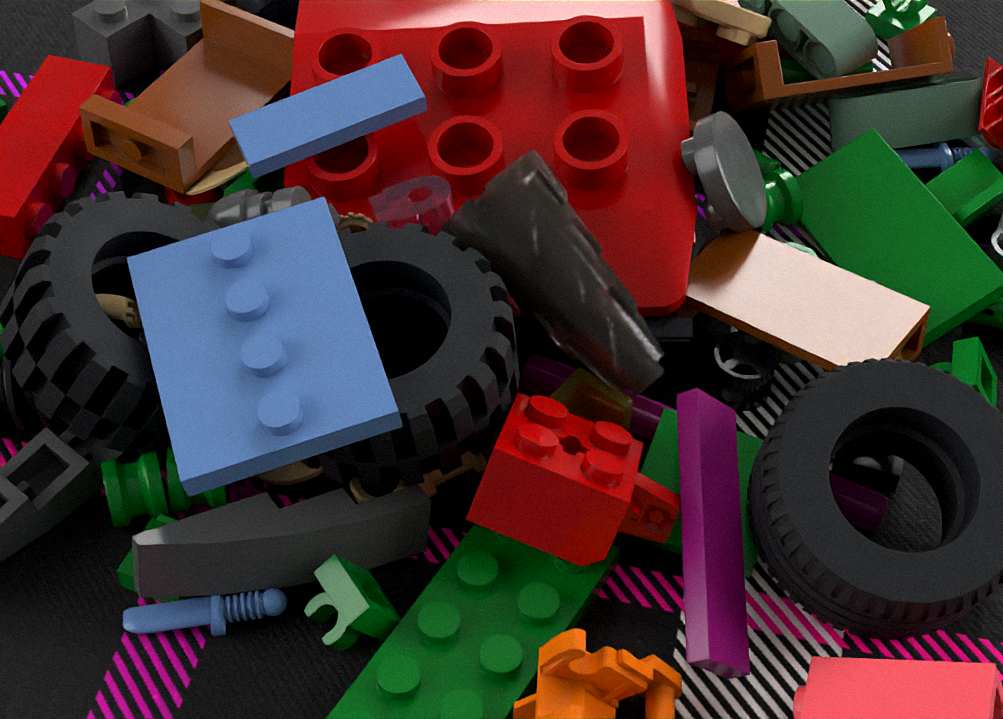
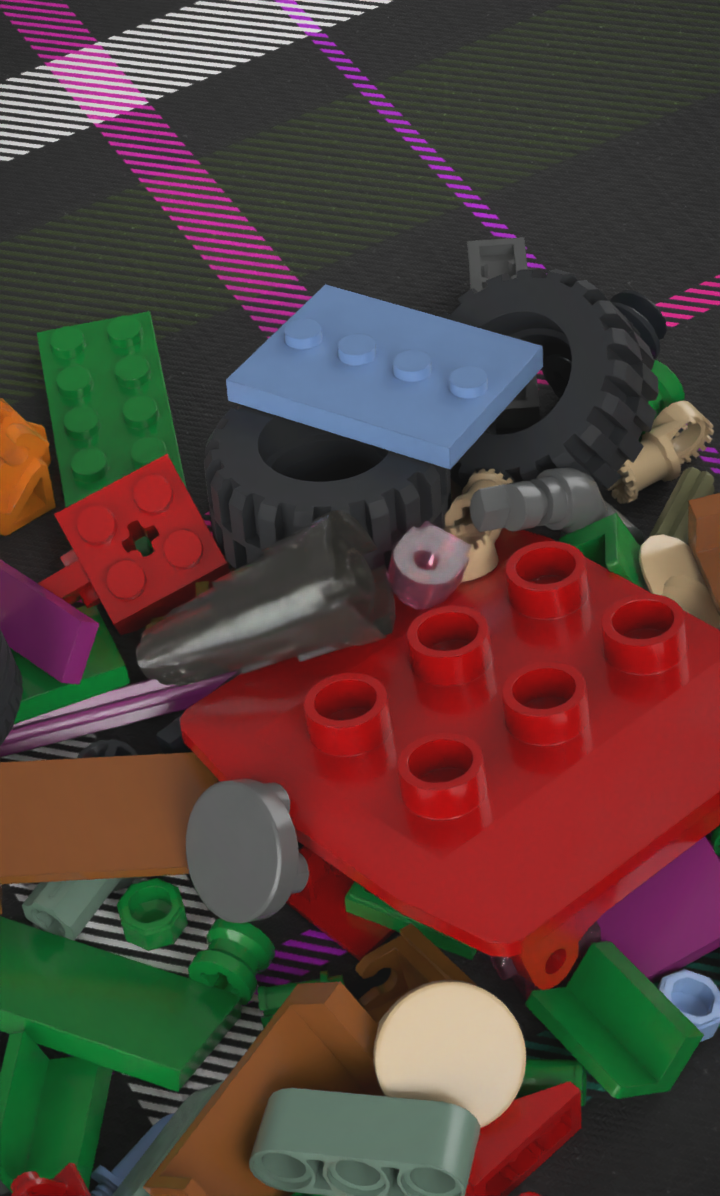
camera: 145 degrees right, 0 degrees up
(327, 115) = (577, 563): medium blue tile -> none
(357, 601) = (199, 420): green tile -> none

